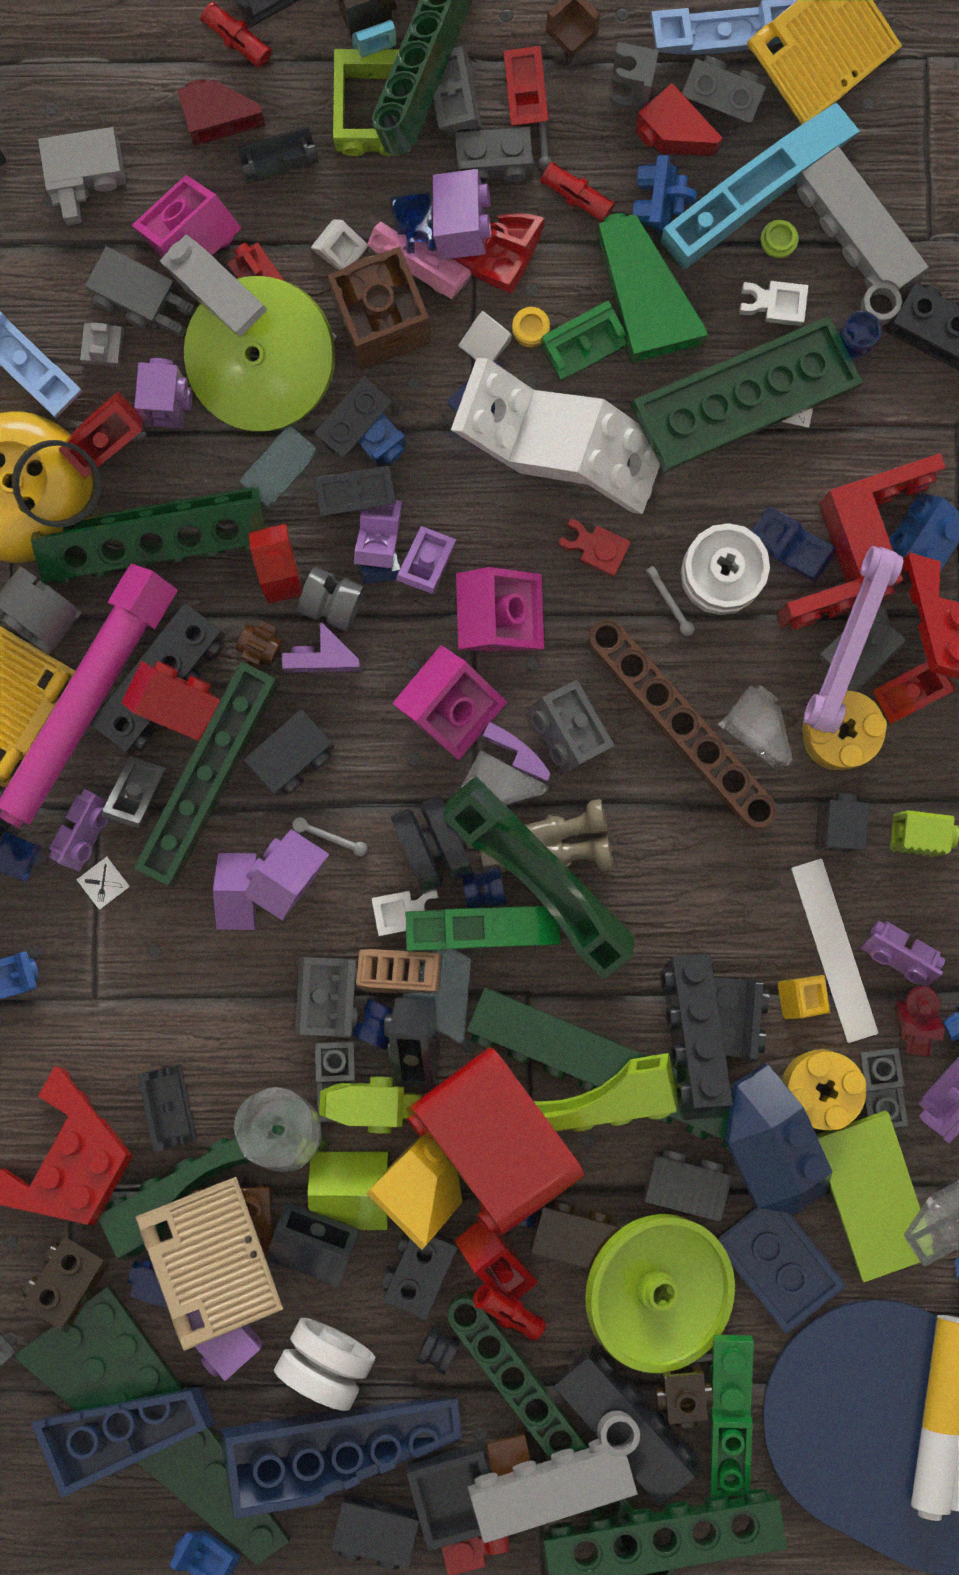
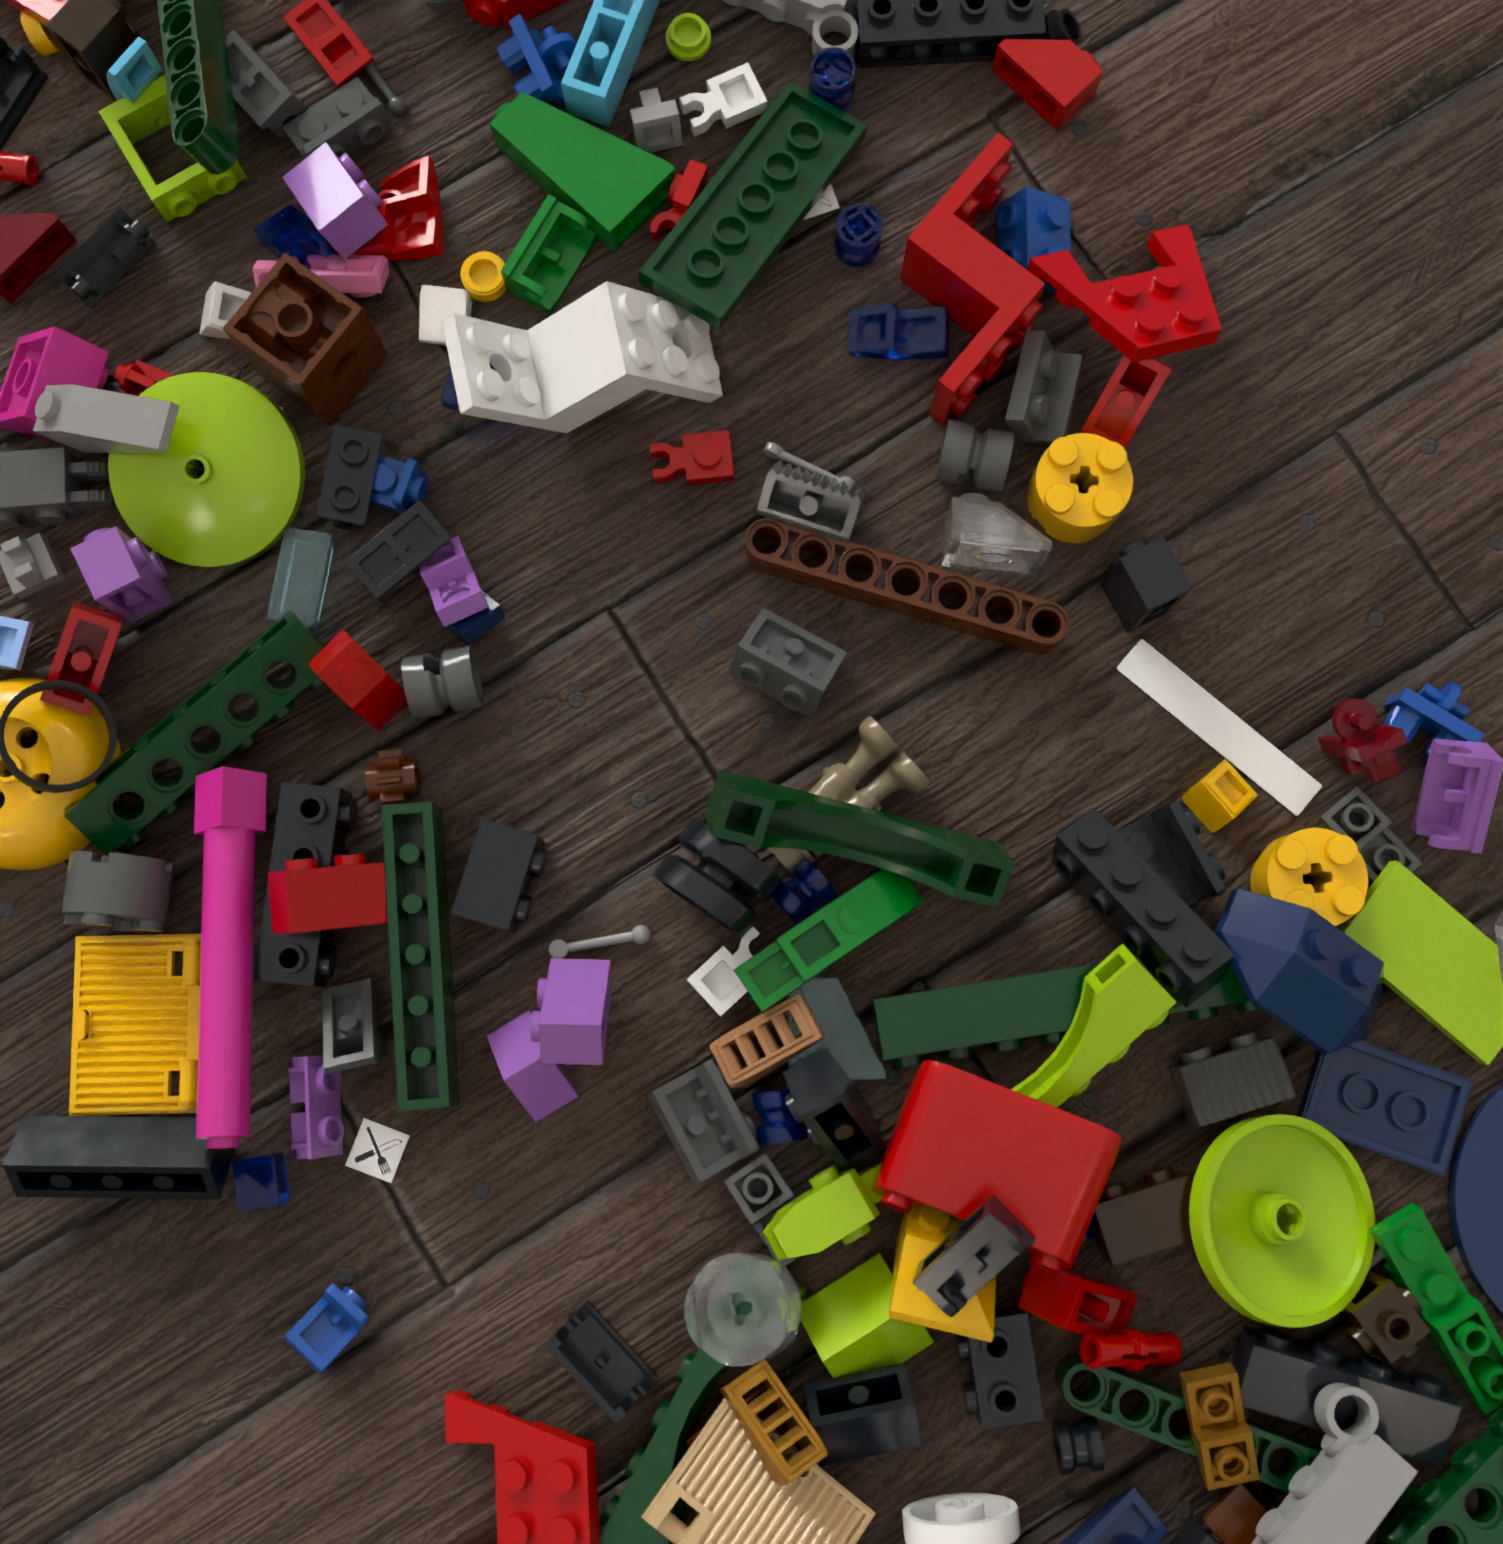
camera: 30 degrees left, 5 degrees down
(239, 1227) = (800, 1430): none -> pearl gold slope
(332, 656) = (483, 745): medium lavender slope -> none
(426, 560) = (522, 581): medium lavender slope -> none
(442, 1188) = (972, 1256): none -> black hinge
(450, 702) = (640, 713): dark pink slope -> none
(499, 610) = (633, 584): dark pink slope -> none
(505, 781) = (757, 758): clear slope -> none
(525, 760) = (763, 725): medium lavender slope -> none
(533, 1392) = (1218, 1426): none -> pearl gold slope
(577, 192) = (417, 112): red pin -> none
(654, 628) = (810, 501): none -> dark grey brick
(704, 355) = (682, 194): none -> red plate
(716, 291) = (656, 123): none -> light grey tile
(731, 547) = (846, 396): white wheel -> none
(786, 664) = (975, 456): none -> dark grey wheel
(801, 464) = (856, 246): none -> clear blue wheel
(880, 569) = (1017, 282): lavender piece -> none
(918, 964) = (1316, 684): medium lavender hinge -> none
(923, 833) = (1235, 540): lime brick -> none

